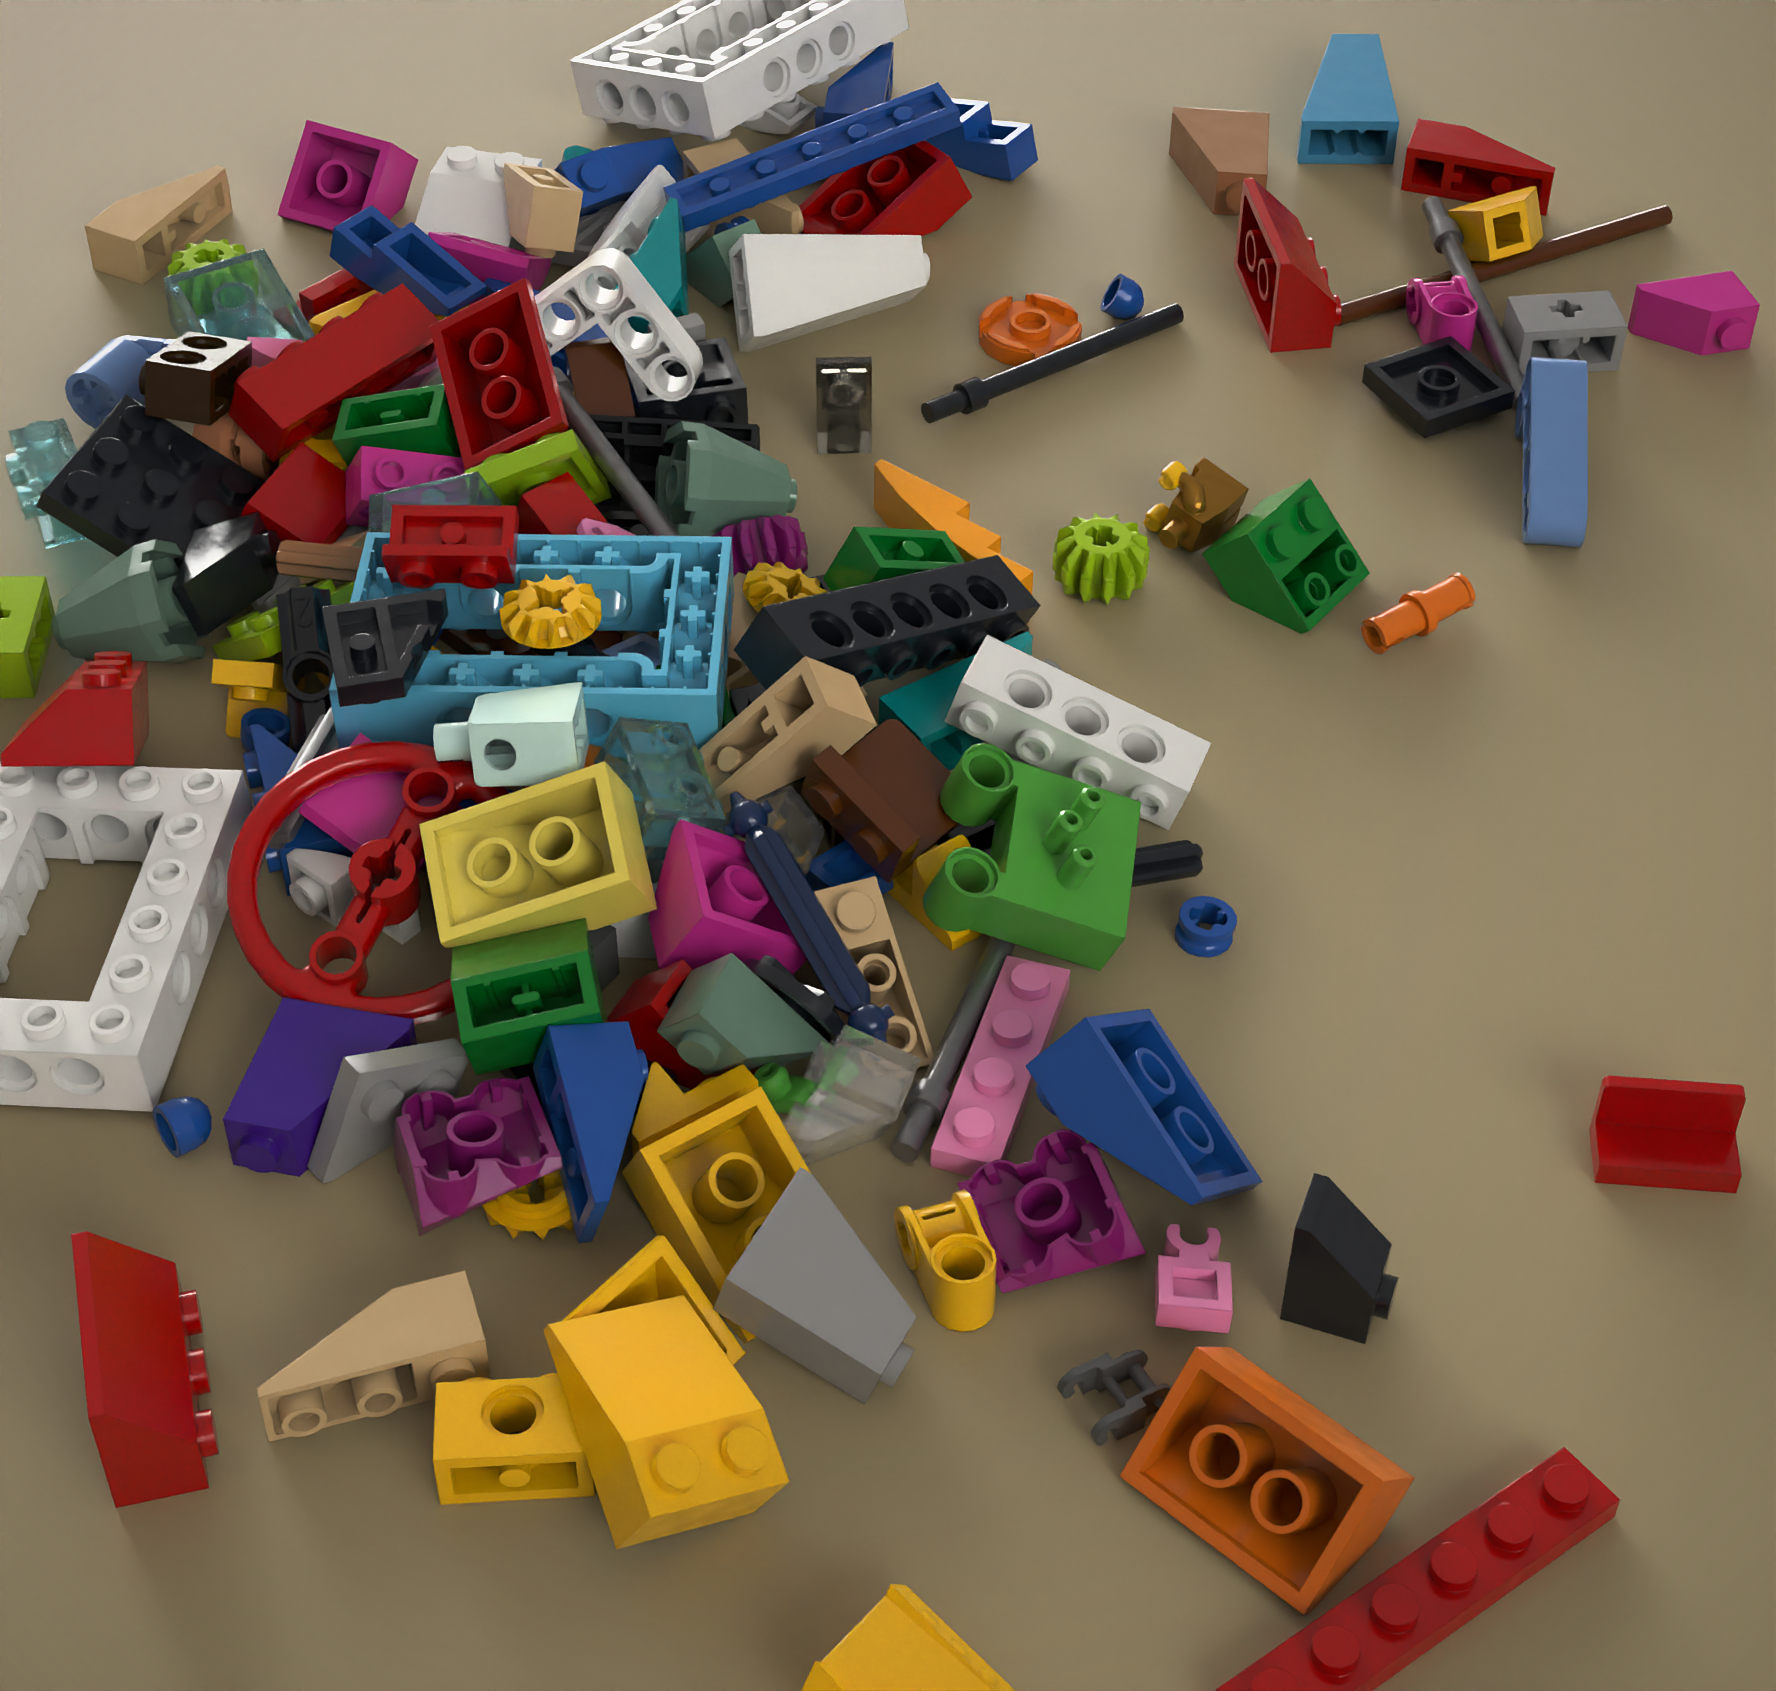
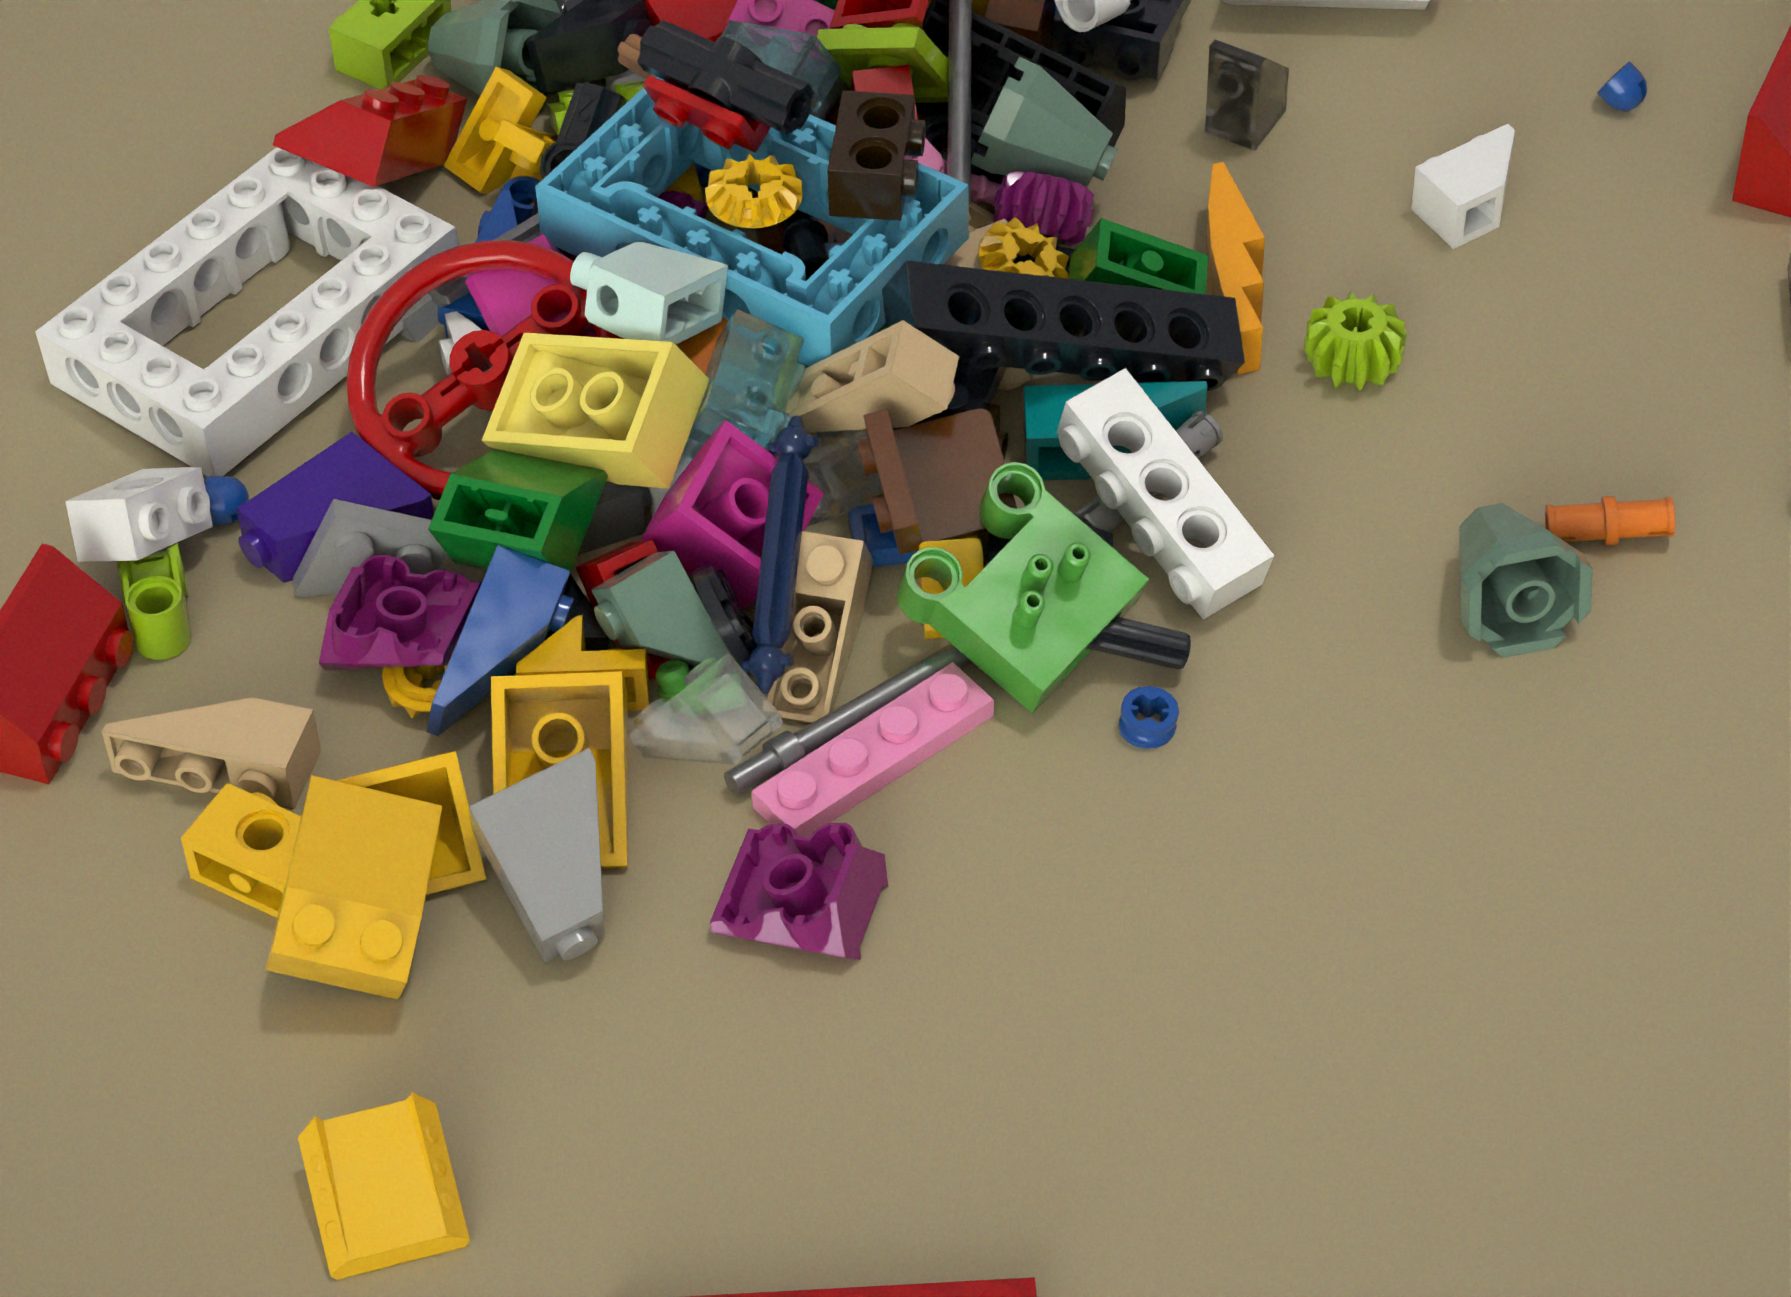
camera: 35 degrees right, 5 degrees up
(126, 1168) = (139, 514): none -> white brick
(185, 701) = (475, 154): none -> yellow slope
(197, 1241) = (156, 603): none -> lime piece
(382, 643) = (593, 163): black wing -> none
(462, 513) = (726, 76): none -> black piece
(641, 539) = (873, 155): none -> dark brown brick
(950, 1260) = (688, 885): yellow piece -> none
(976, 393) = (1389, 130): black bar -> none
(1027, 328) = (1507, 85): orange tile -> none
(1078, 412) = (1465, 188): none -> white slope
(1107, 1373) = (730, 1071): dark grey piece -> none
(1138, 1101) = (926, 839): blue slope -> none
(1193, 1286) = (859, 1004): bright pink plate -> none
(1201, 510) = (1486, 331): pearl gold piece -> none
(1265, 1476) = (779, 1170): orange slope -> none
(1288, 559) = (1529, 417): green slope -> none
(1337, 1266) = (967, 1038): black slope -> none
(1404, 678) = (1519, 582): none -> sand green cone
(1667, 1134) = (1369, 1085): red panel -> none

